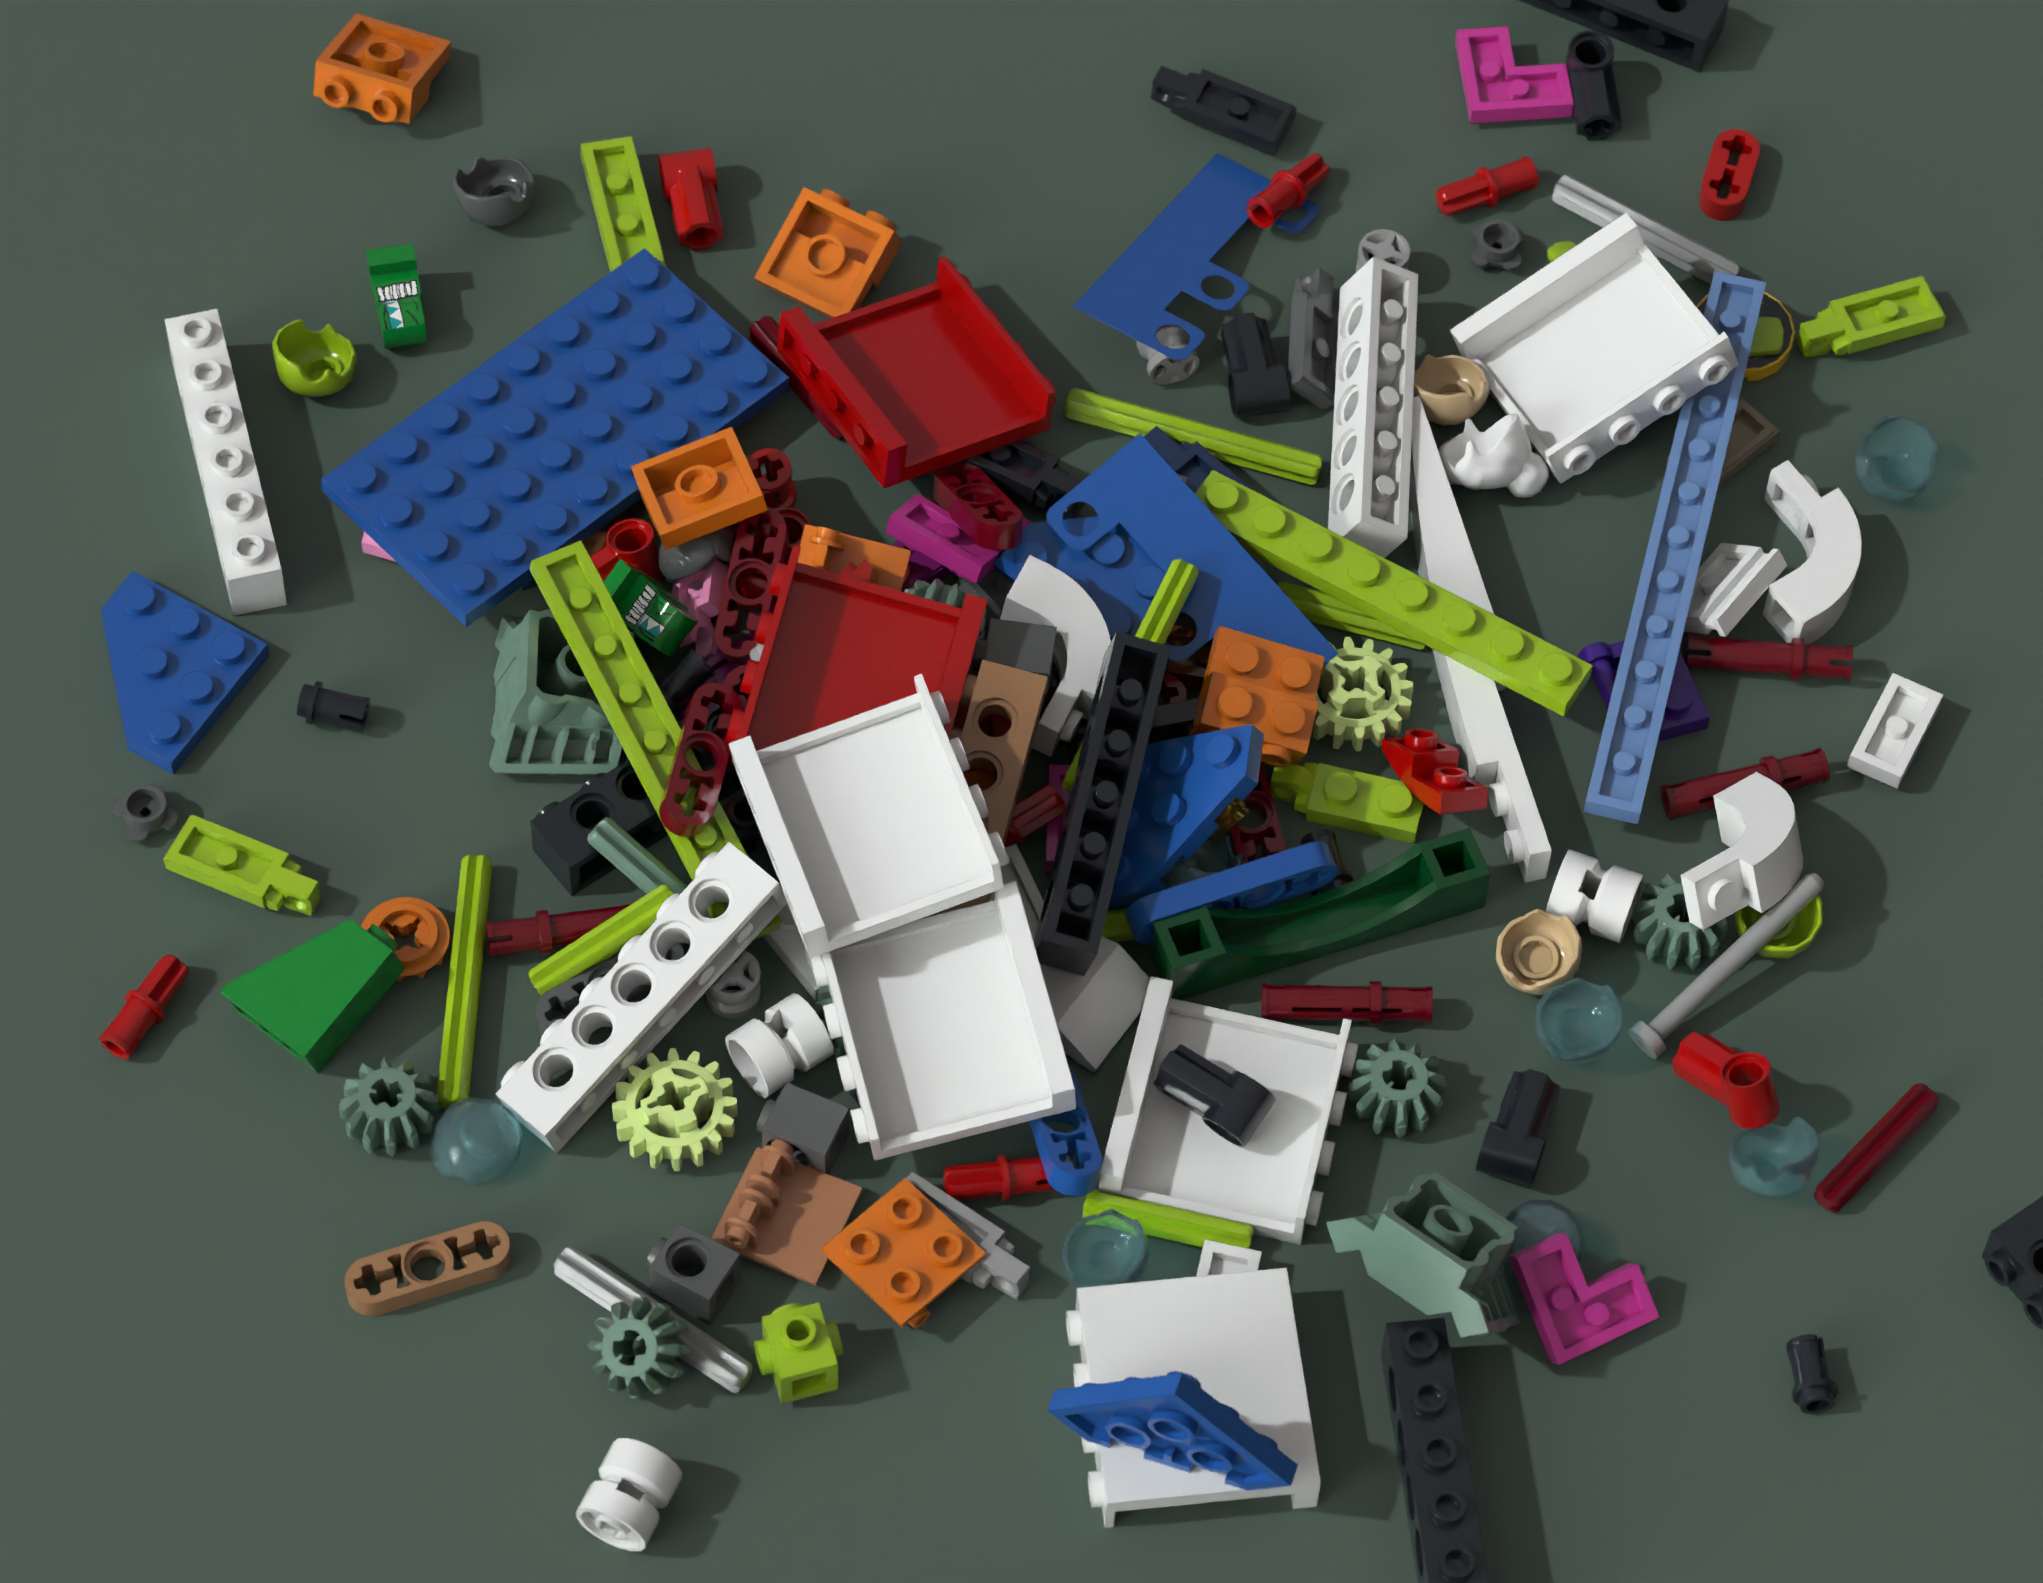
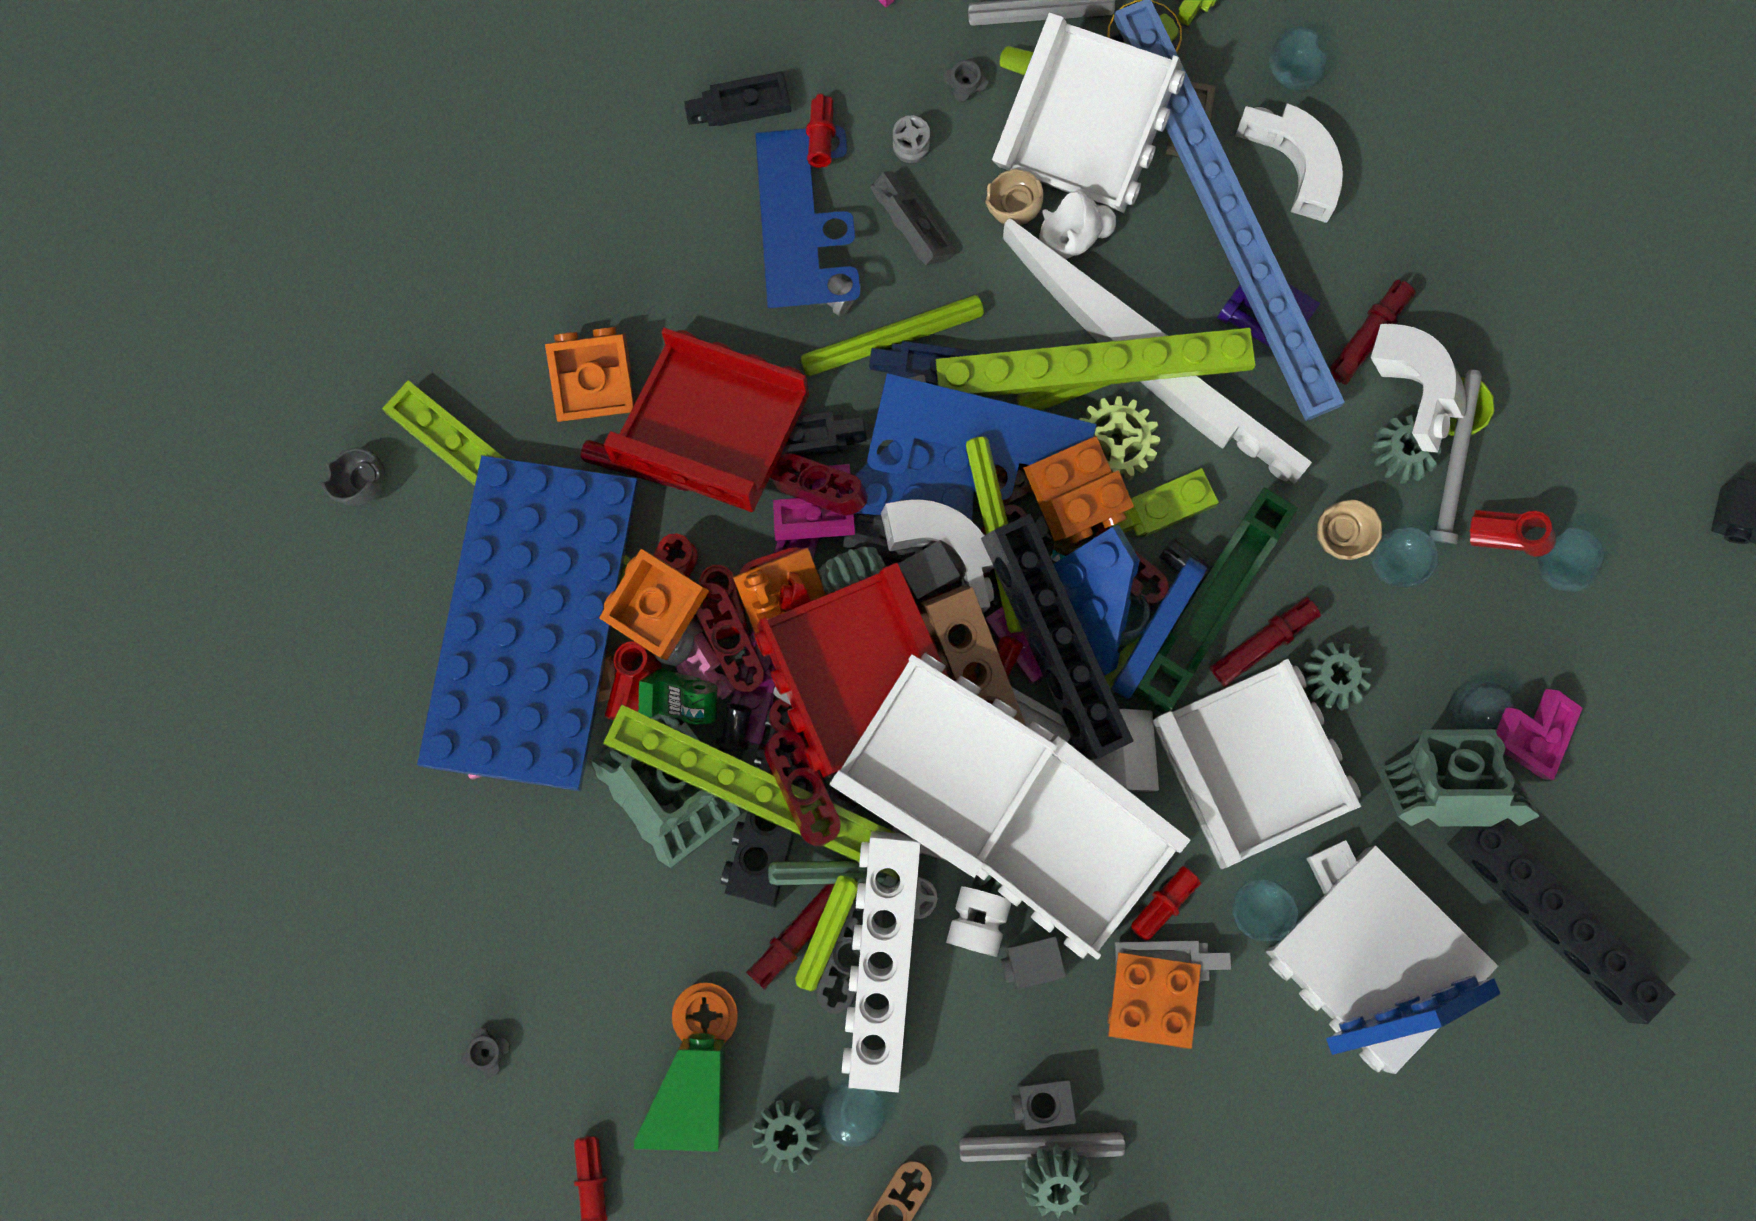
camera: 30 degrees left, 20 degrees up
(173, 668) = (421, 943): blue plate -> none
(225, 462) = (342, 786): white brick -> none
(241, 867) = (570, 1046): lime hinge -> none
(313, 360) = (339, 675): lime hair -> none
(332, 707) = (539, 898): black pin -> none
(380, 69) = (216, 445): orange plate -> none
(397, 295) = (355, 594): green leg -> none
(464, 980) = (761, 1016): lime axle -> none
(658, 1126) = (968, 1016): yellowish green gear -> none
(691, 187) = (470, 387): red piece -> none
(785, 1213) = (1063, 1021): nougat hinge -> none
(799, 1351) = (1161, 1112): lime brick -> none
(1056, 1146) = (1208, 860): blue beam -> none
(1171, 1222) = (1276, 857): lime axle -> none
(1227, 1102) = (1258, 761): black piece -> none
(1254, 377) = (901, 273): black piece -> none
(1374, 407) = (989, 246): white brick -> none
(1432, 772) = (1195, 457): red slope -> none
(1487, 187) = (930, 44): red axle -> none
(1517, 1139) = (1424, 660): black piece -> none
(1614, 899) = (1358, 468): white wheel -> none
(1730, 586) = (1276, 209): white plate -> none
(1770, 657) = (1335, 231): dark red pin -> none
(1812, 1382) = (1687, 679): black pin -> none
(1876, 1147) = (1612, 507): dark red axle -> none
(1895, 730) = (1425, 235): white plate -> none

